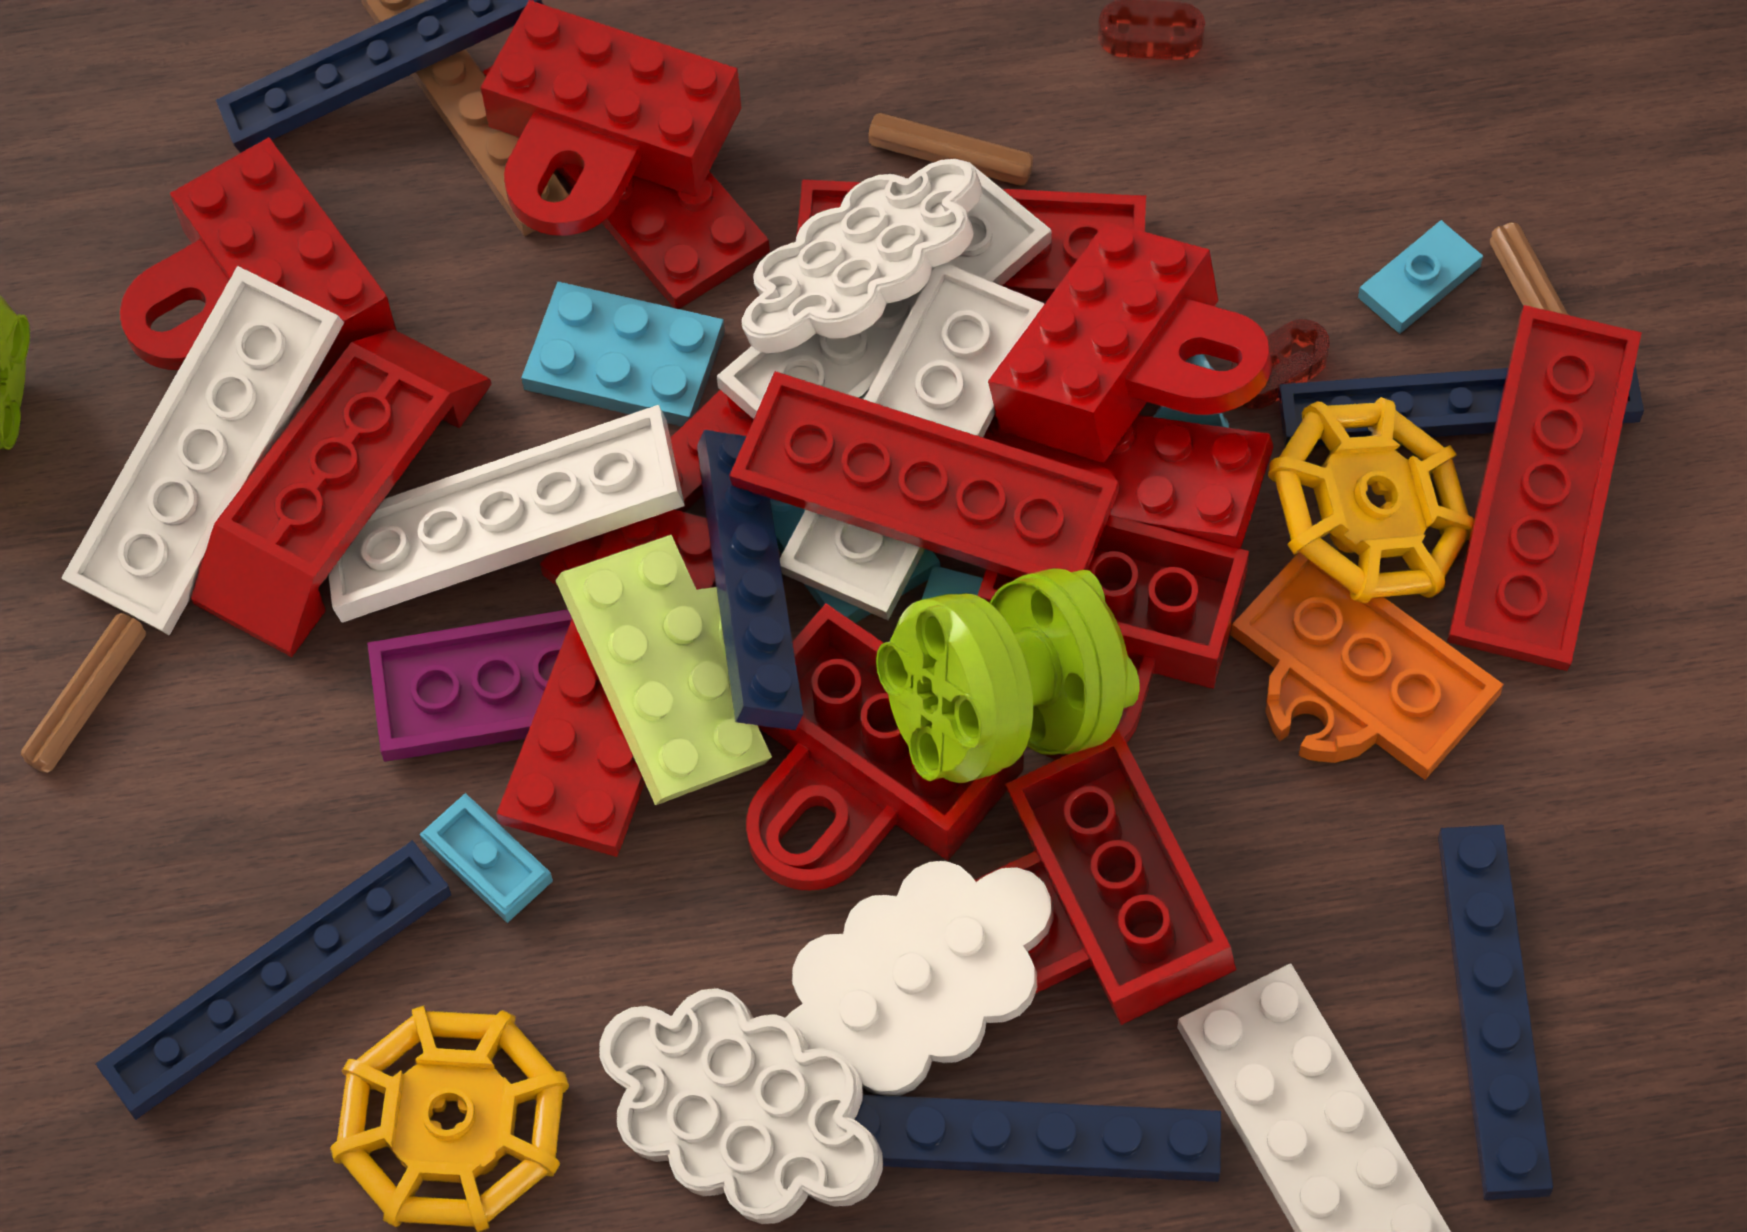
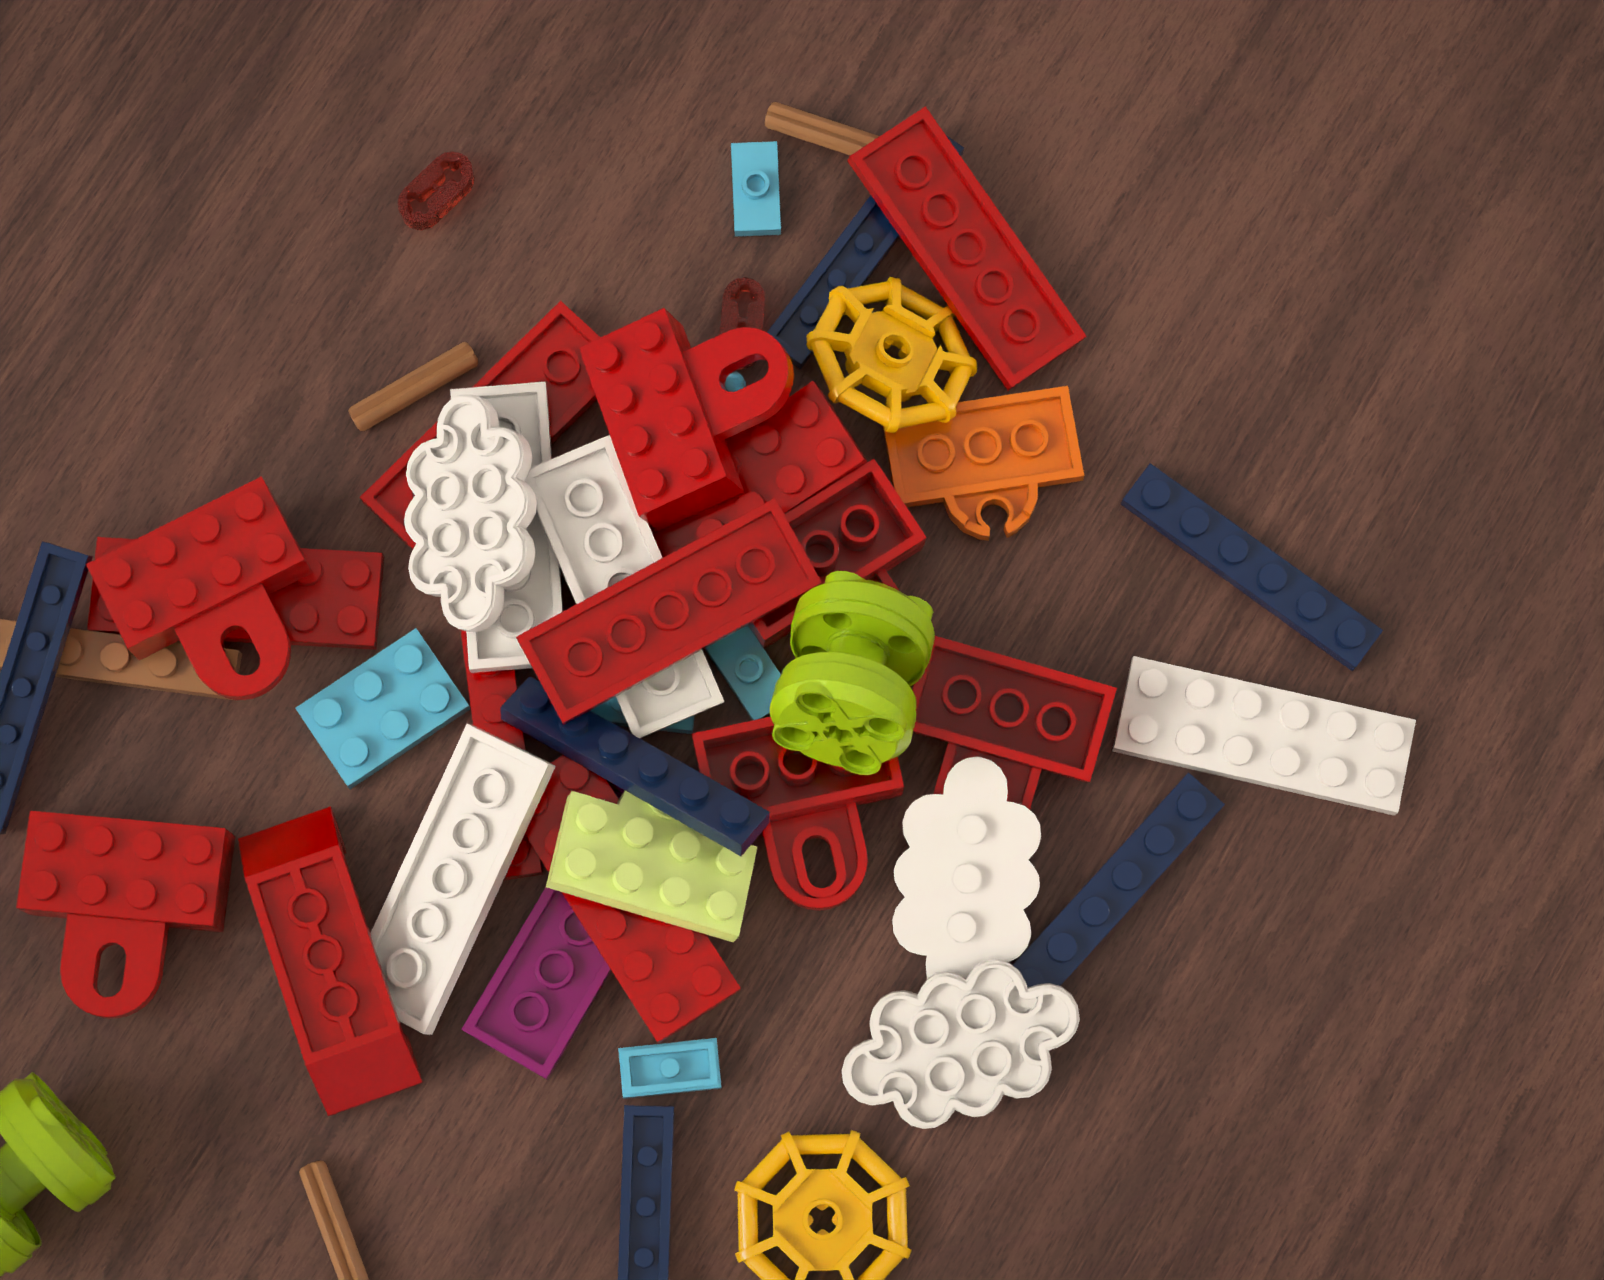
camera: 55 degrees left, 15 degrees up
(202, 448) = (237, 1030): white plate -> none

